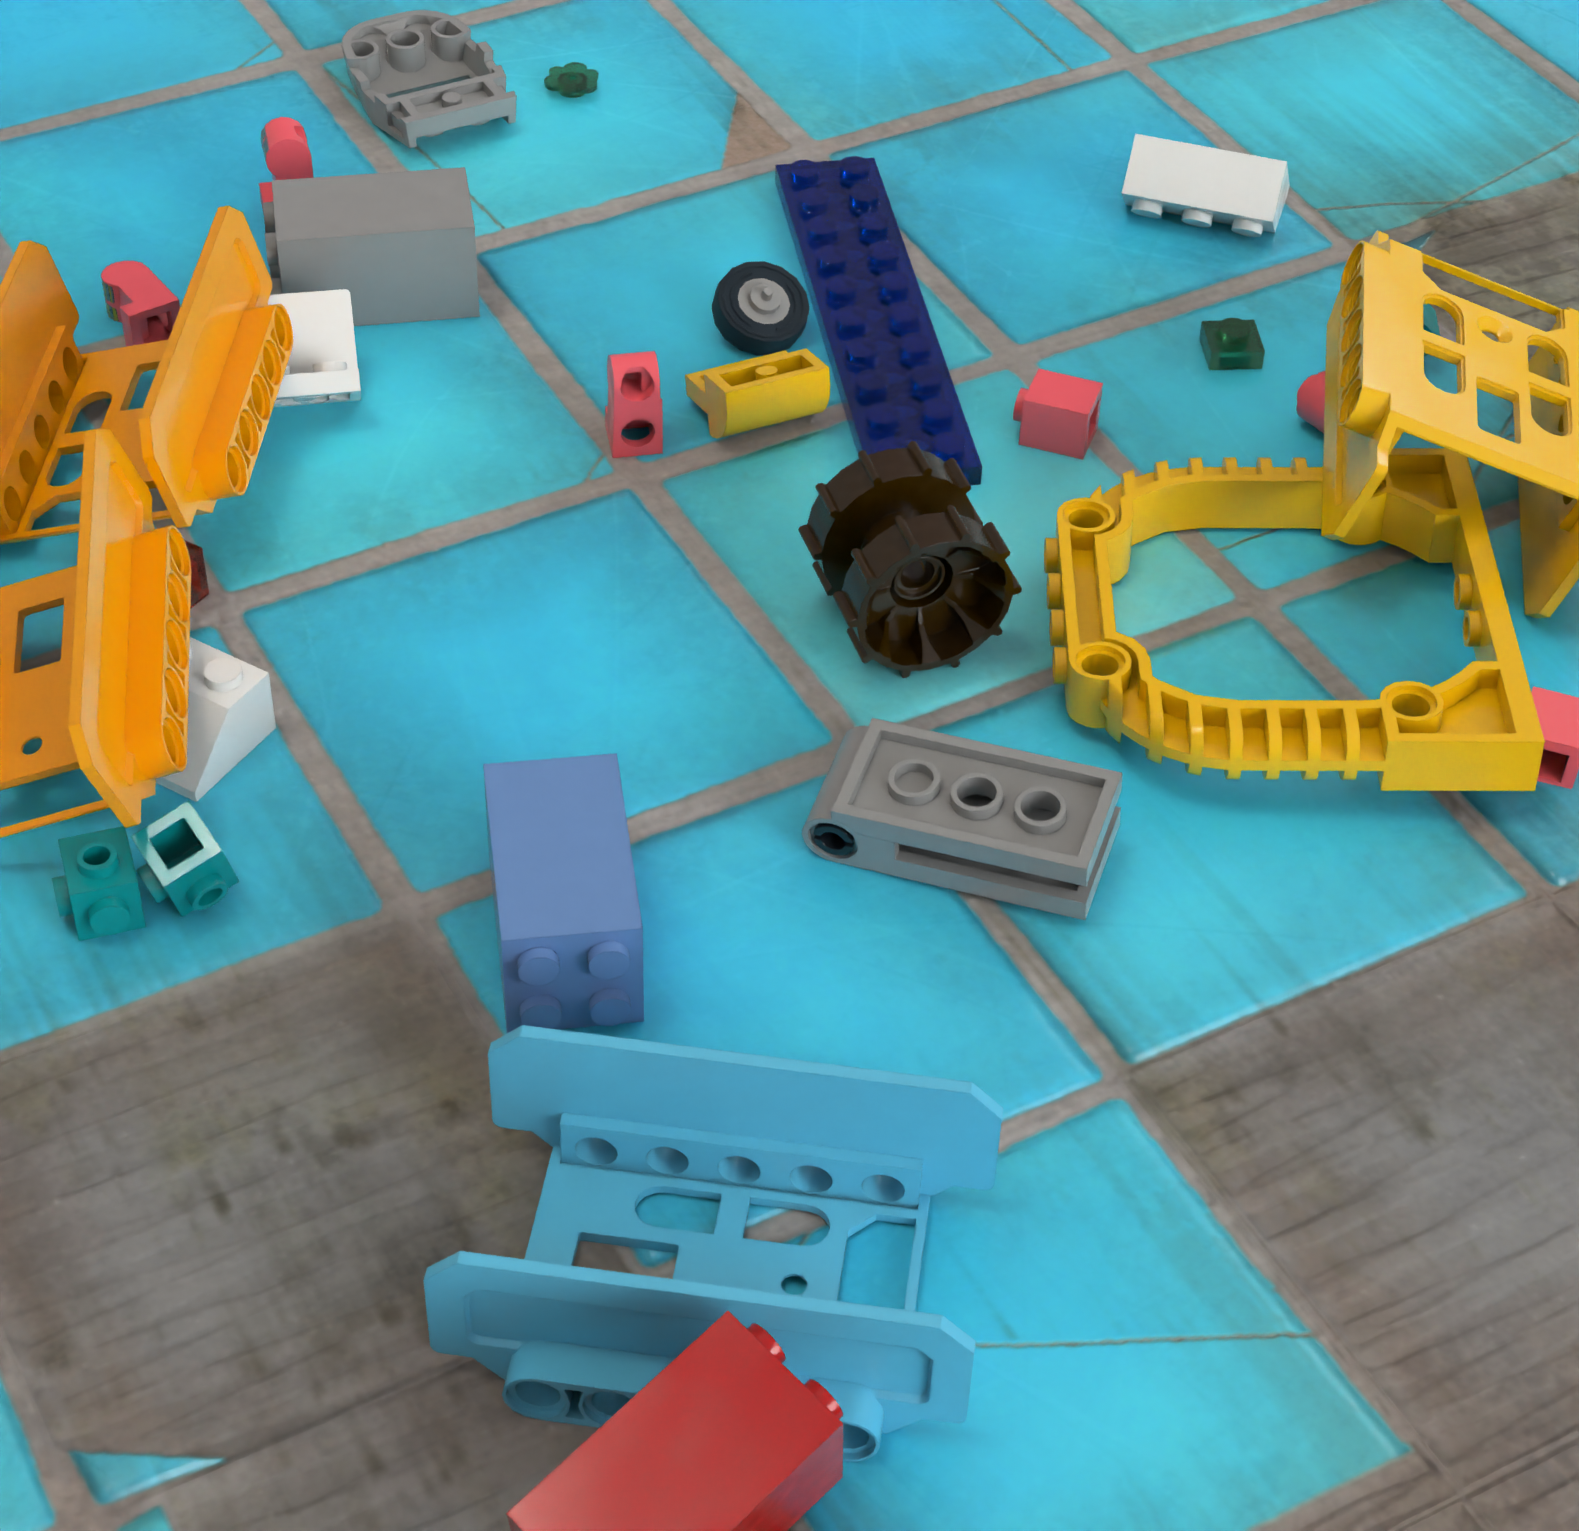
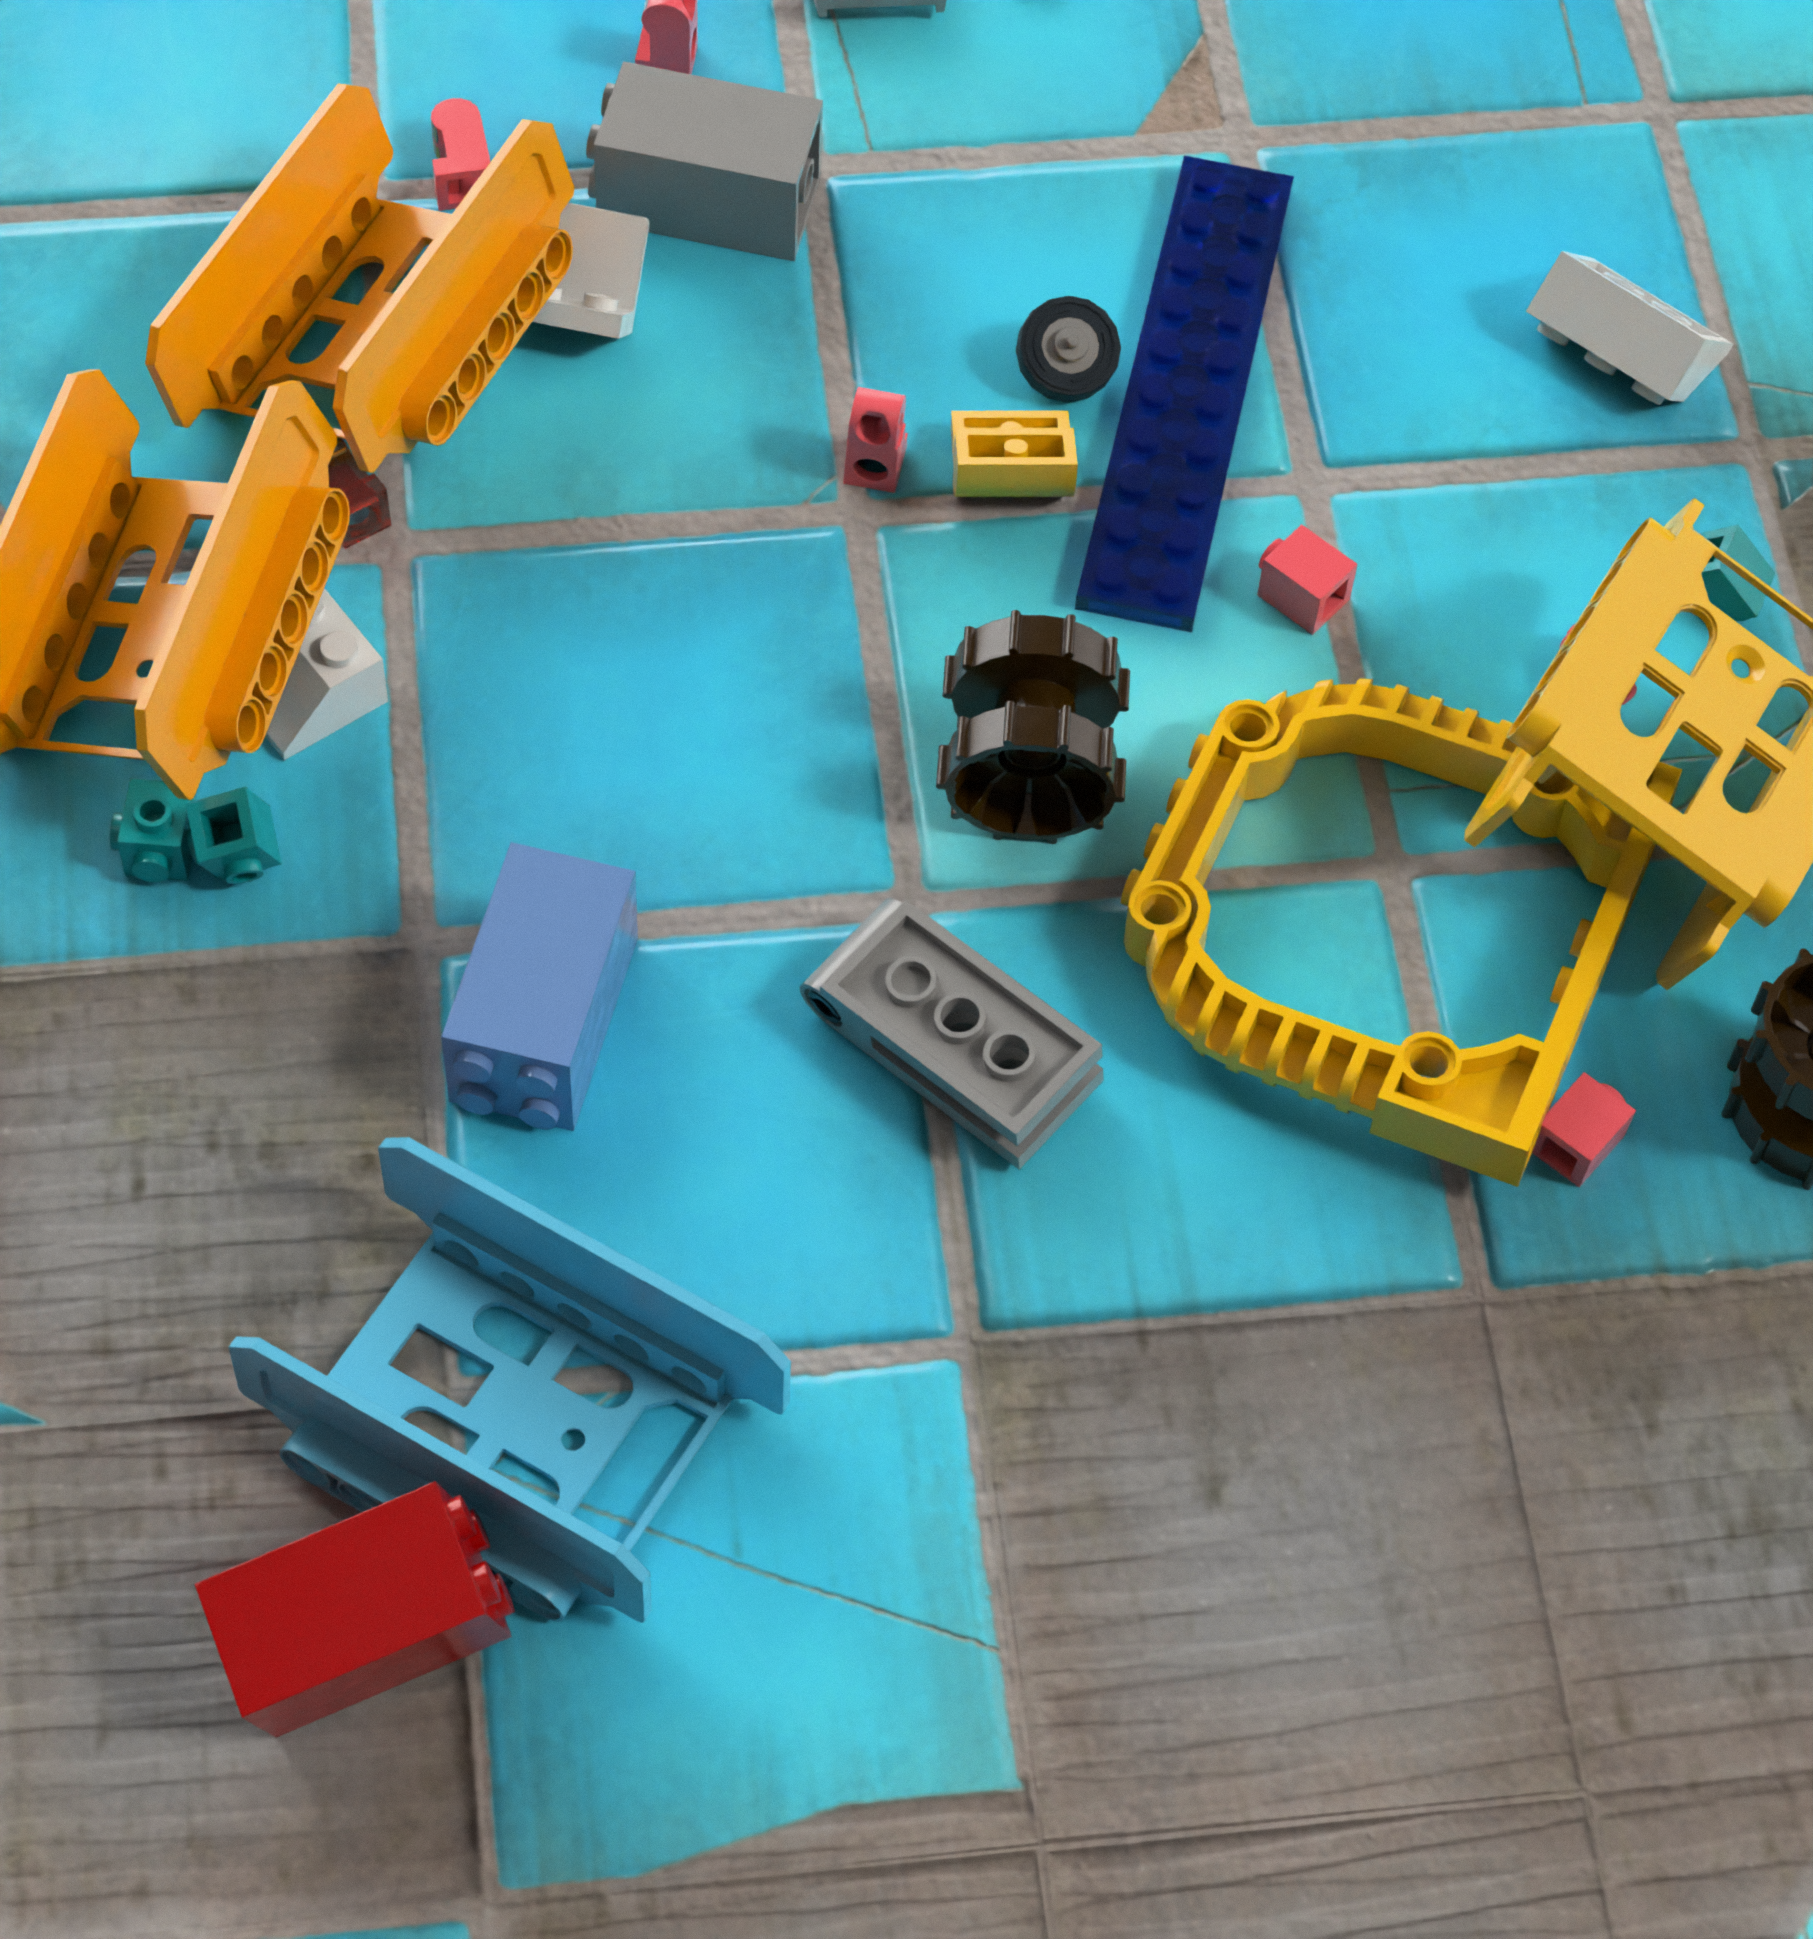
camera: 20 degrees right, 15 degrees up
(1231, 344) = (1544, 540): clear green plate -> none

